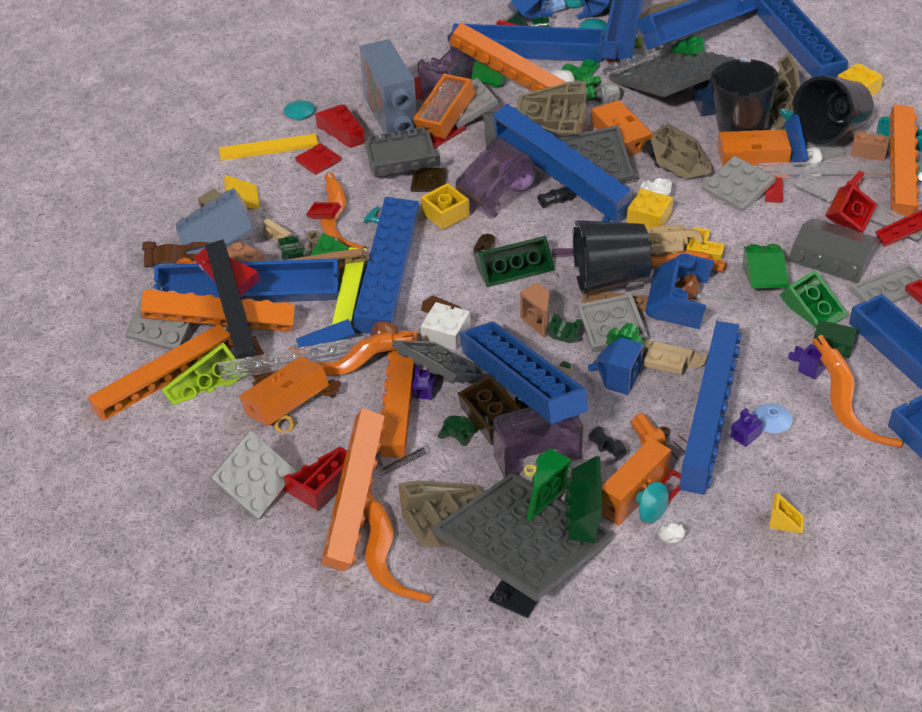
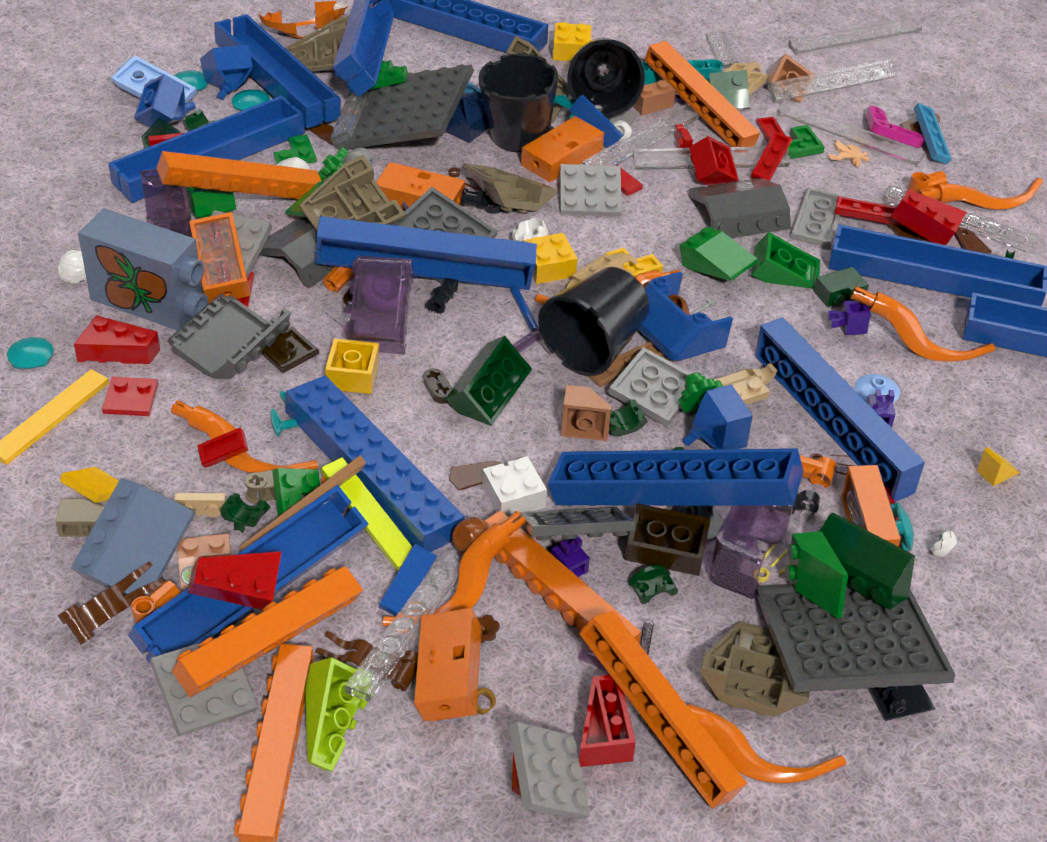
camera: 50 degrees left, 0 degrees up
(230, 299) = (289, 602): black beam -> none

